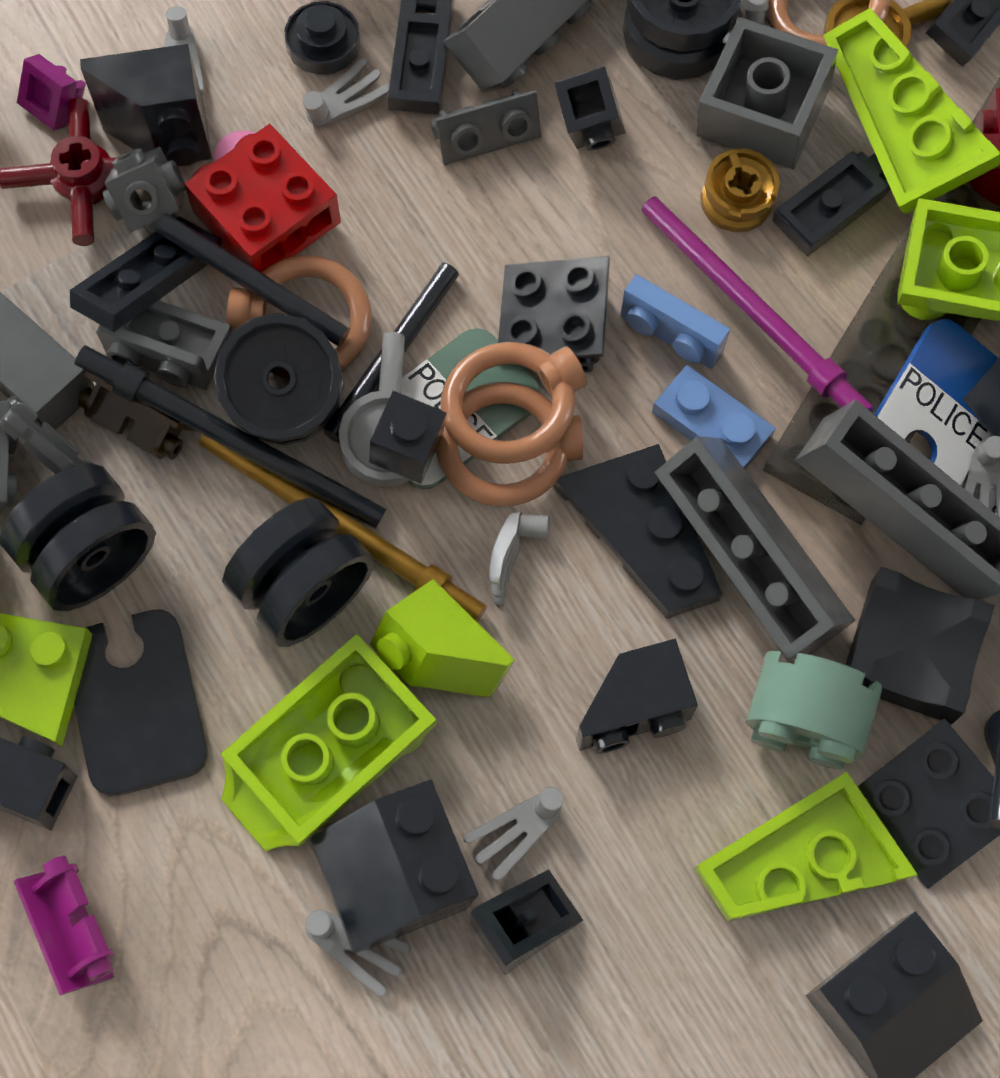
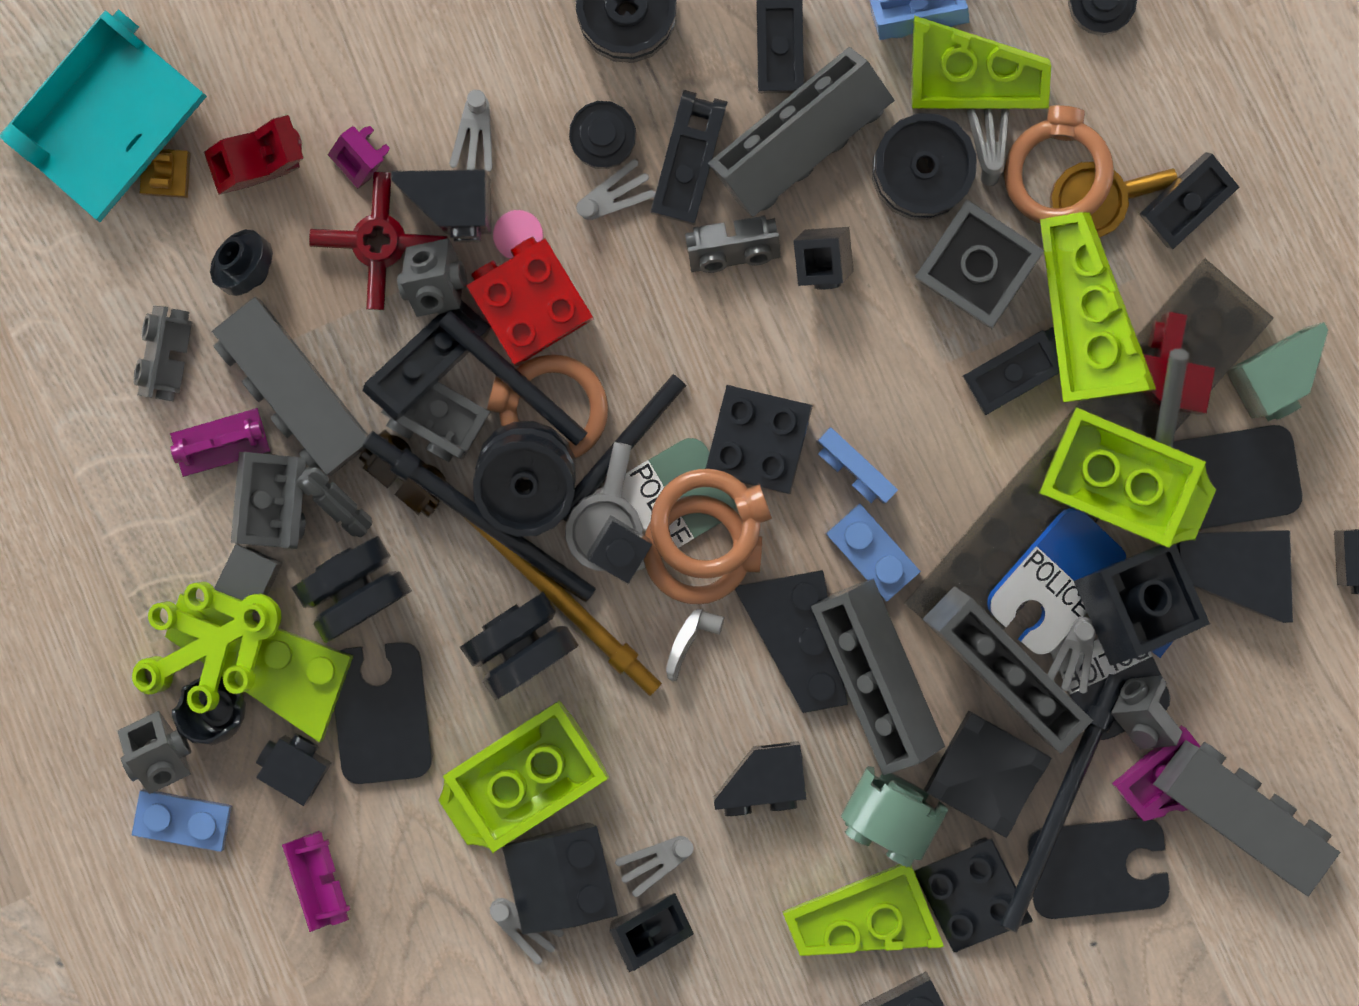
camera: 10 degrees right, 20 degrees up
(440, 645) = (619, 714): lime slope -> none
(728, 205) = (958, 350): pearl gold wheel -> none
(823, 373) = (967, 542): magenta bar -> none

